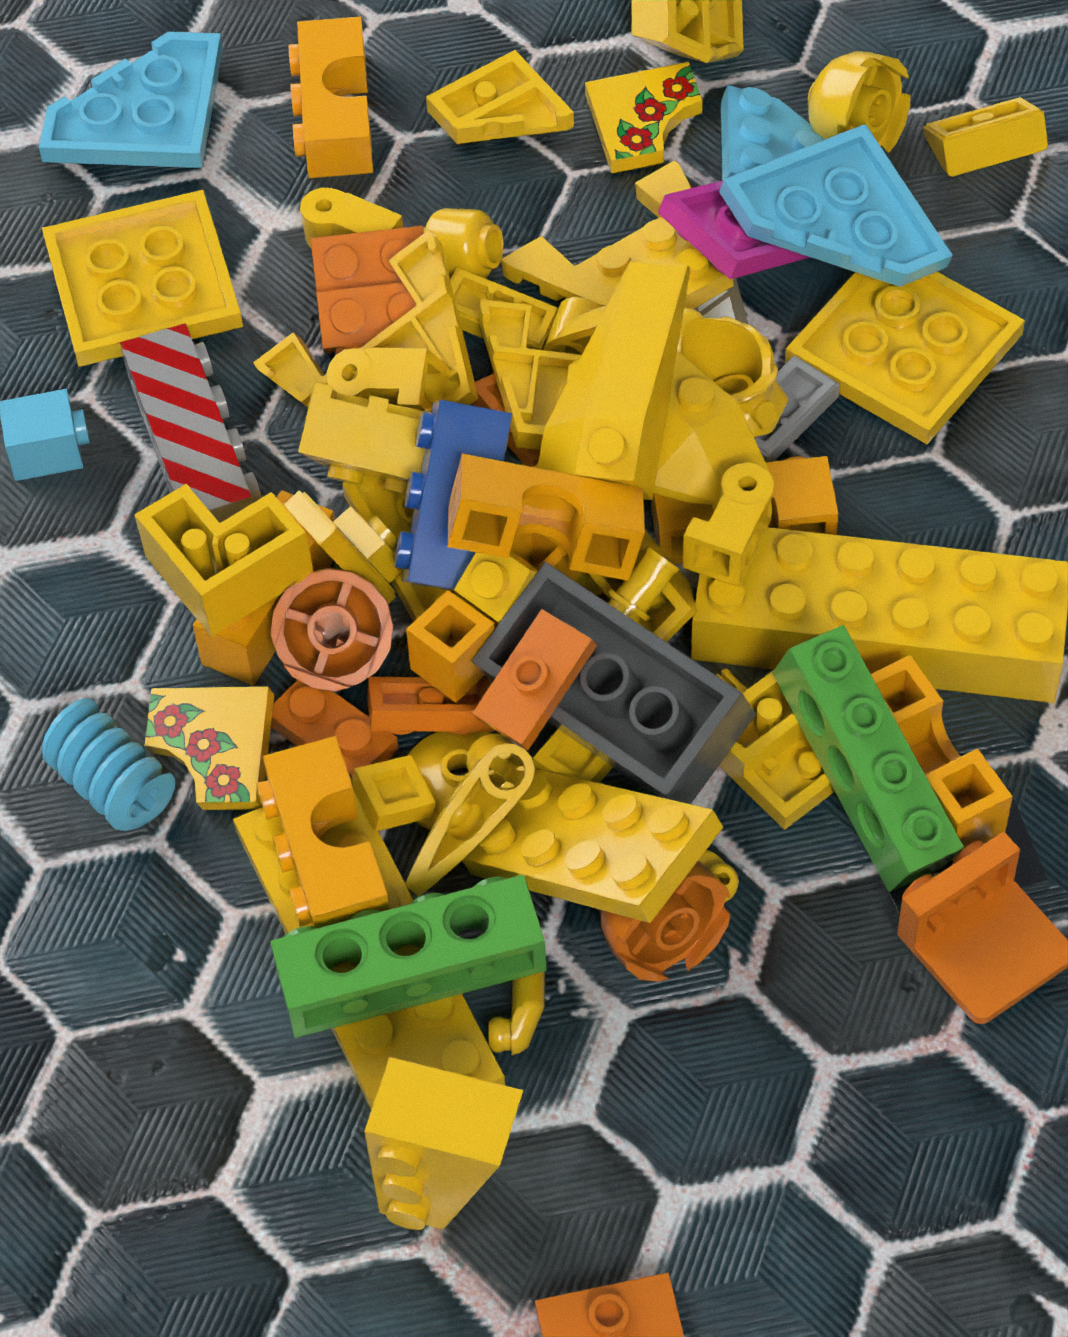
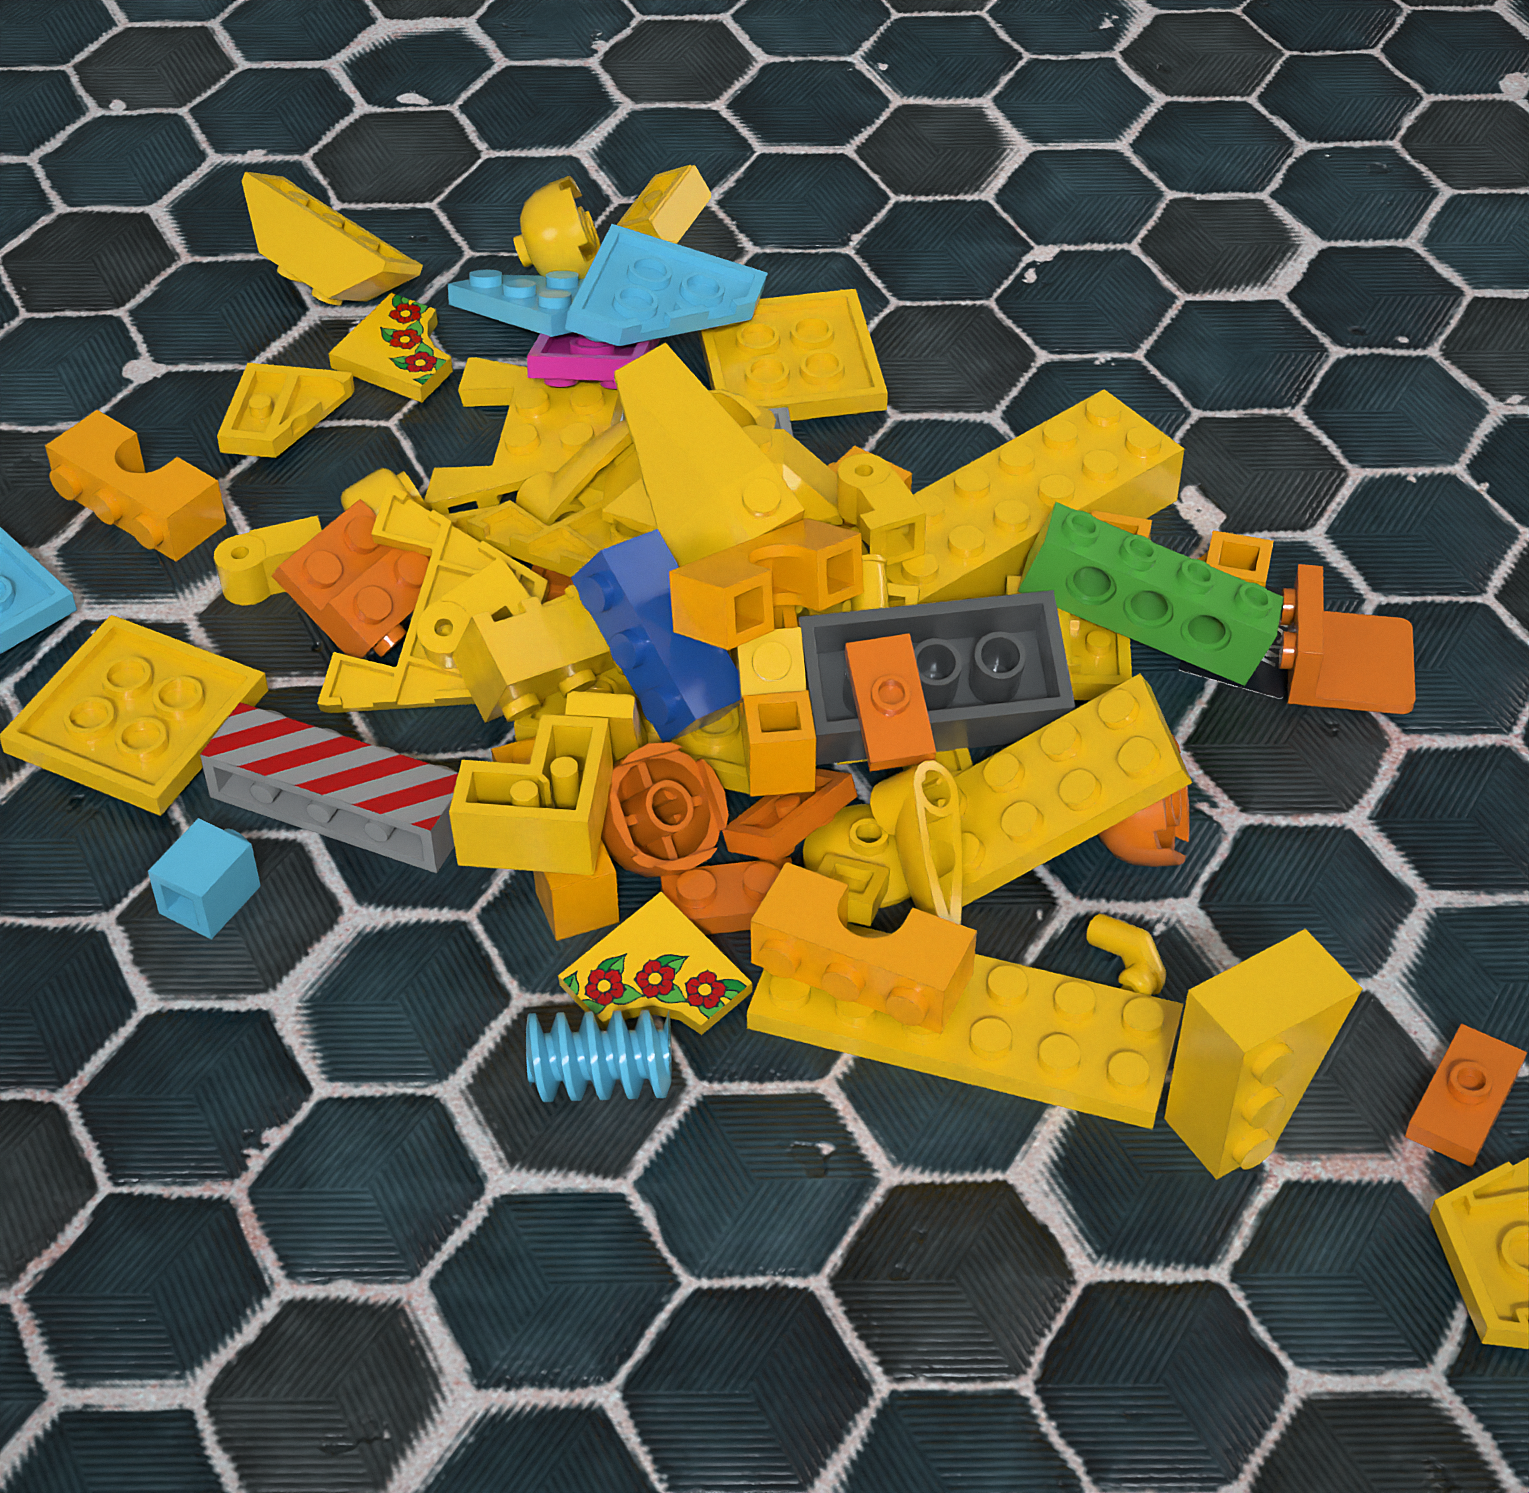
camera: 50 degrees left, 10 degrees down
(392, 982) = (1028, 971): bright green brick -> none

